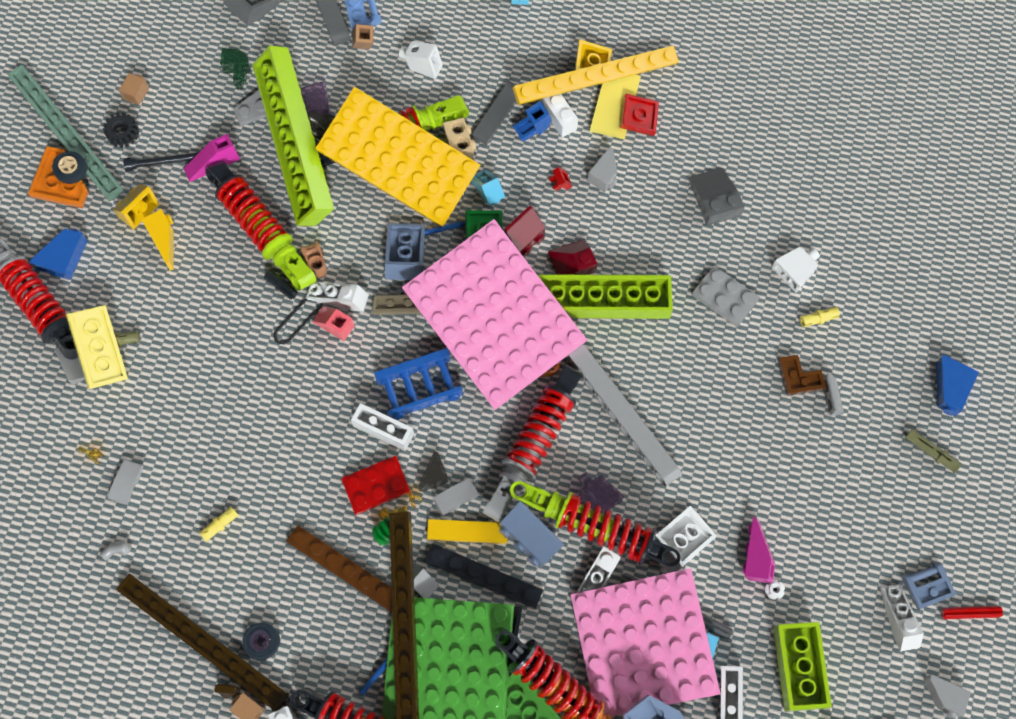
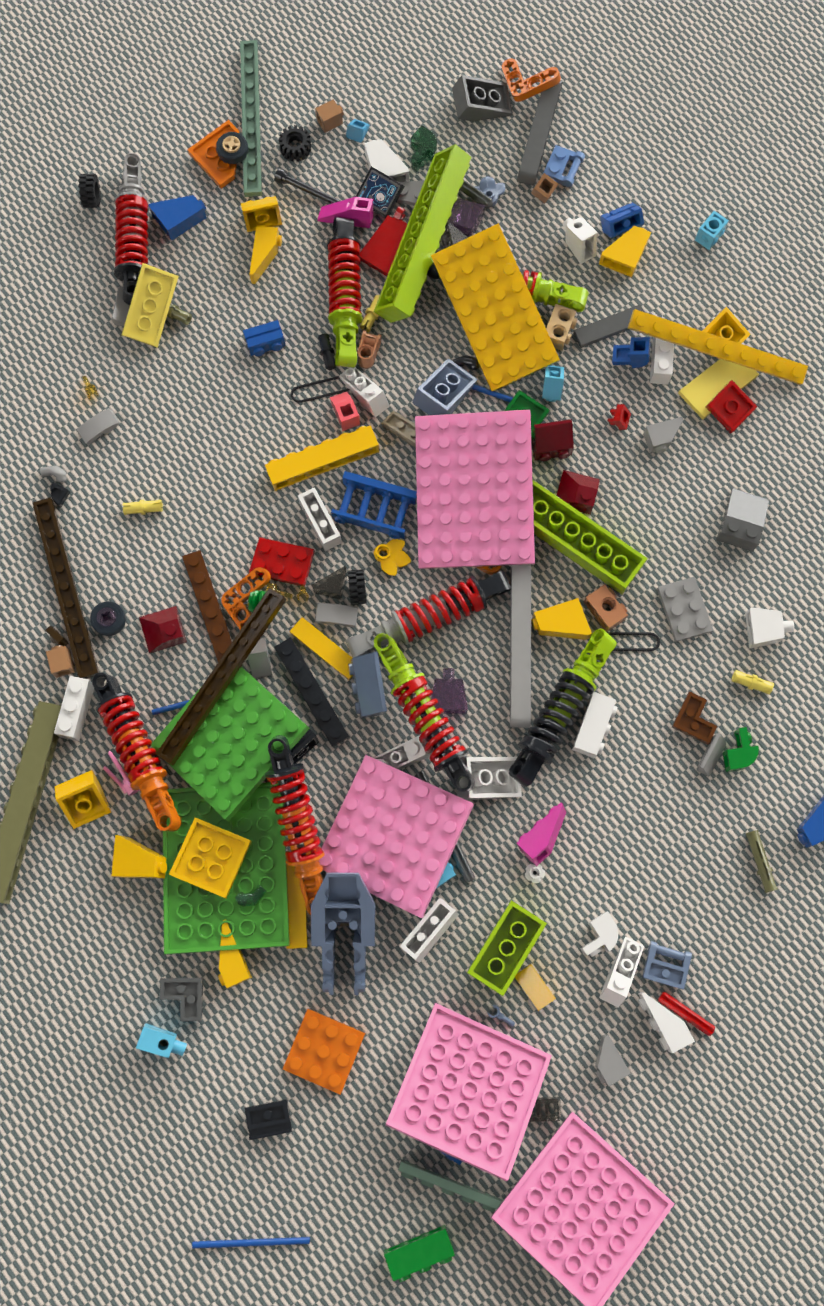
camera: 40 degrees right, 5 degrees up
(133, 565) = (59, 494): none -> black tile
(166, 86) = (357, 130): none -> dark azure slope
(213, 100) = (385, 160): none -> white slope
(218, 309) = (264, 338): none -> blue brick
(227, 121) = (382, 190): none -> slope
(262, 163) = (384, 243): none -> red tile
(295, 230) = (370, 315): none -> light yellow pin
(306, 76) = (476, 195): none -> dark grey axle
(316, 68) = (491, 189): none -> sand blue plate
(316, 615) = (162, 629): none -> dark red slope
(344, 375) = (322, 457): none -> yellow brick
(366, 546) = (238, 605): none -> orange beam
(404, 214) = (467, 360): none -> black arm
(444, 23) = (622, 220): none -> blue brick
(457, 461) = (357, 587): none -> black tyre
(466, 46) = (626, 251): none -> yellow slope
(467, 416) = (394, 558): none -> yellow plate
(642, 371) = (562, 620): none -> yellow slope
(671, 346) = (606, 619): none -> nougat brick
(692, 418) = (571, 688): none -> black piece
(714, 353) = (636, 633): none -> black piece
(729, 436) = (595, 725): none -> white brick
(847, 681) = (534, 987): none -> yellow slope
(857, 376) = (743, 755): none -> green brick
(866, 596) = (606, 933): none -> white brick
(969, 632) = (671, 1028): none -> white slope

